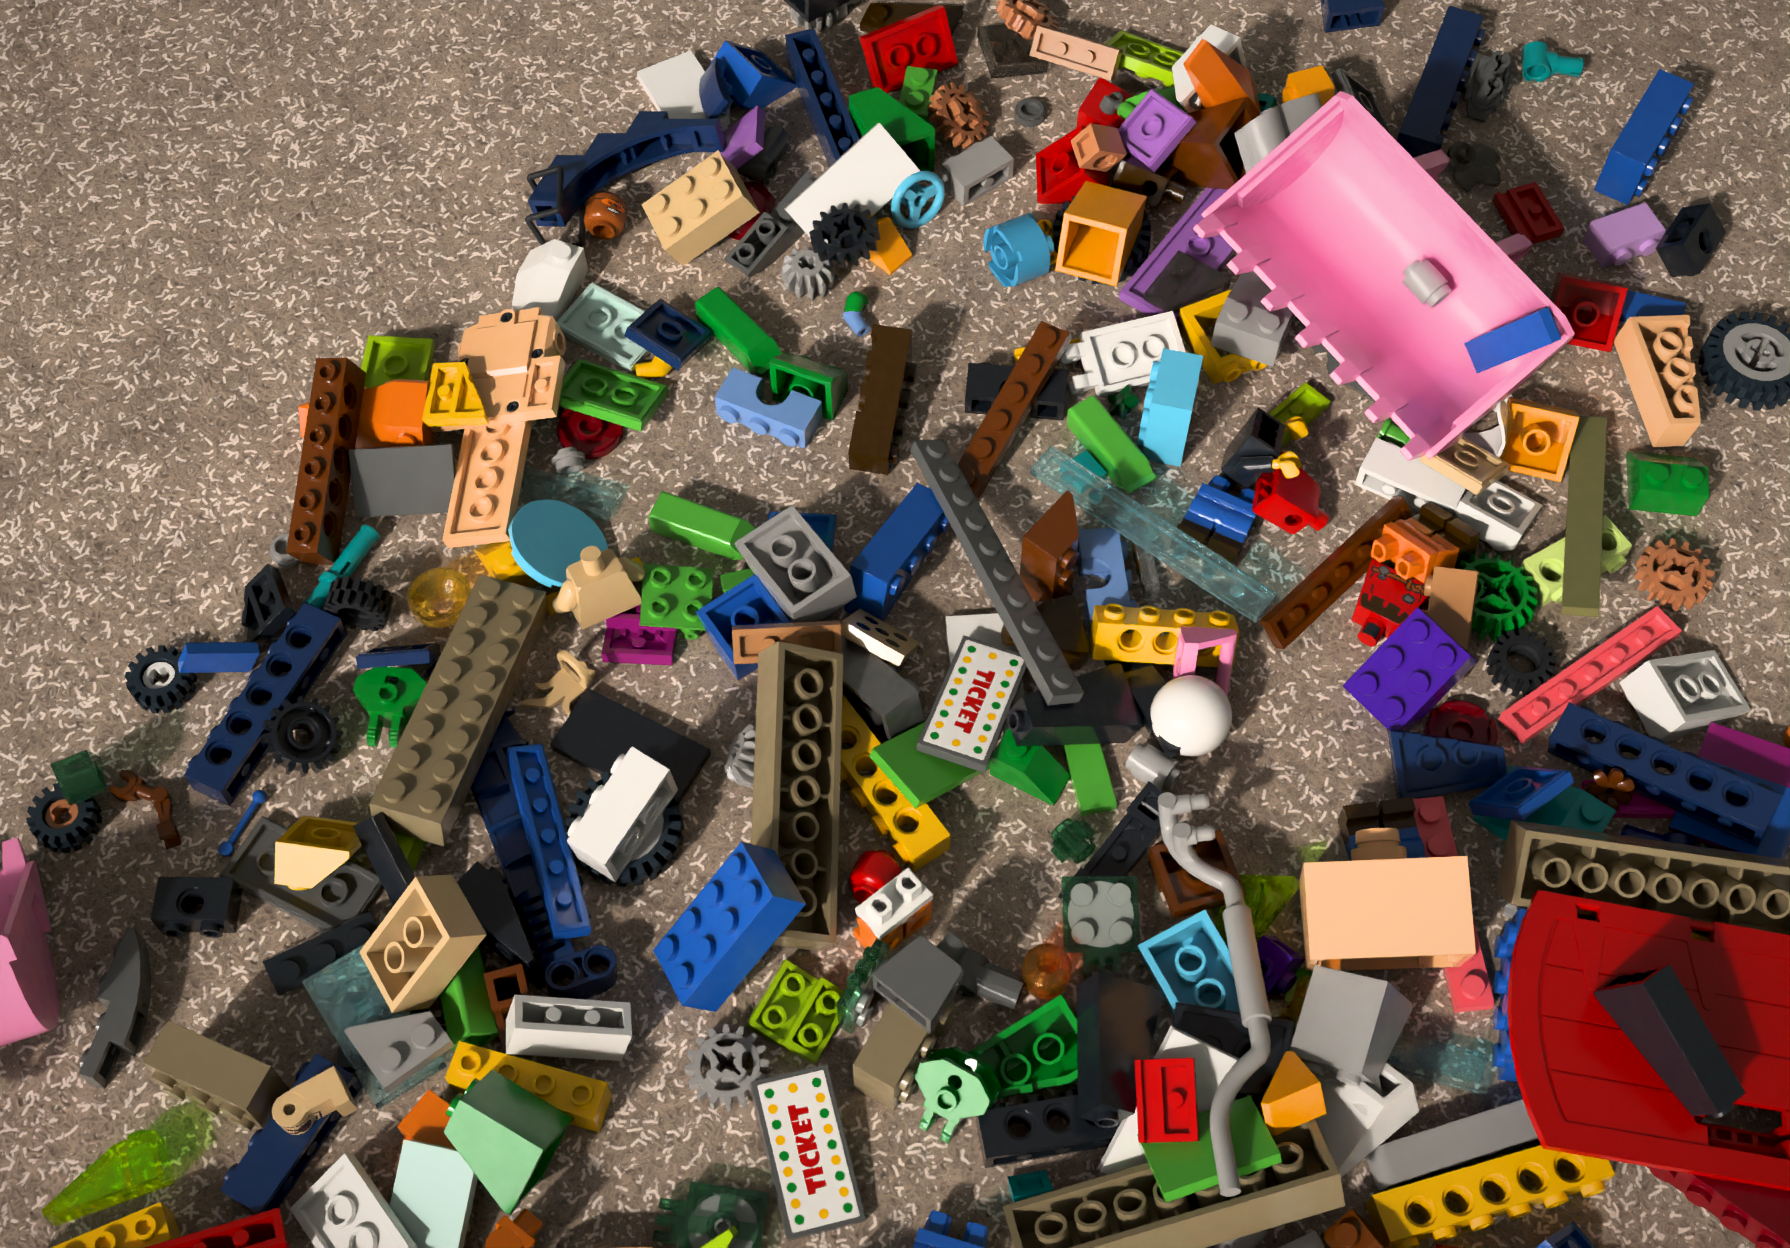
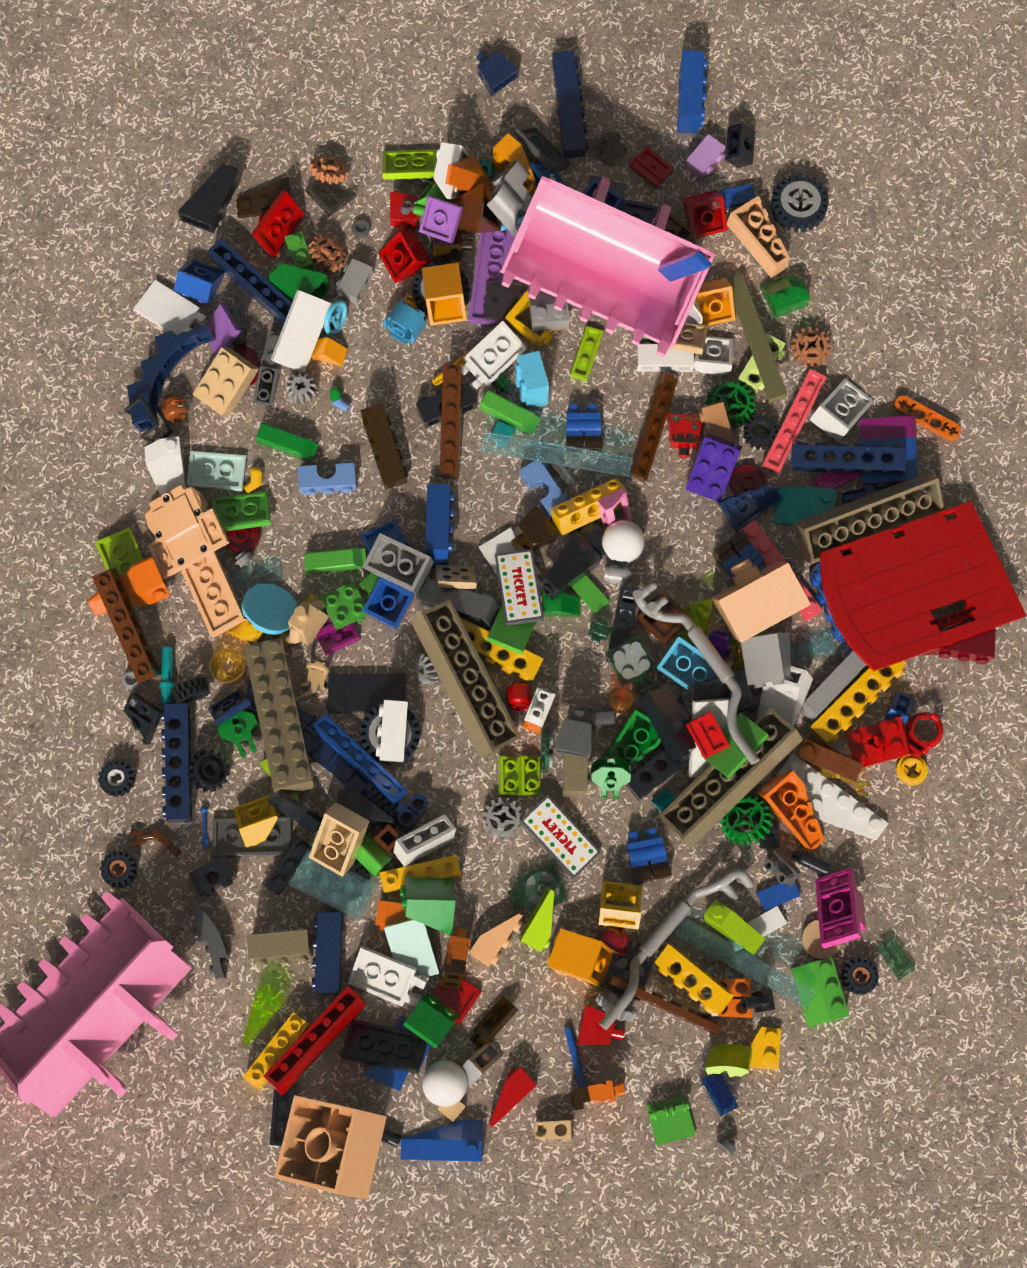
camera: 30 degrees left, 15 degrees up
(80, 776) = (117, 847): clear green plate -> none
(218, 657) = (140, 753): blue tile -> none
(312, 1100) = (332, 933): tan leg -> none
(399, 1046) = (355, 889): light grey wing -> none
(402, 479) = (168, 613): dark grey tile -> none
(453, 397) = (169, 558): yellow wing -> none
(669, 334) = (251, 462): dark blue tile -> none
(714, 90) = (189, 305): dark blue slope -> none
(728, 927) = (472, 757): blue brick -> none
(752, 639) = (420, 602): medium nougat plate -> none
(809, 378) = (339, 452): green slope -> none
(844, 235) = (305, 360): black gear -> none
(997, 573) = (493, 513): dark grey plate -> none
(1051, 552) = (517, 494): reddish brown slope -> none
(1076, 52) = (370, 183): plate -> none
(1098, 147) = (417, 243): nougat brick -> none
(1258, 446) = (584, 382): black torso -> none
(1289, 501) = (610, 398): red torso -> none
(1292, 1096) = (759, 703): light orange slope -> none
(1425, 542) = (688, 392): orange hips -> none
(1426, 283) = (625, 247): light grey brick -> none
(1486, 84) = (593, 93): dark grey connector -> none
(1520, 792) = (791, 504): blue tile -> none
(1541, 63) = (616, 63): teal pin -> none
(1611, 787) = (828, 479): reddish brown plant -> none
(1672, 1038) = (906, 594): black slope -> none

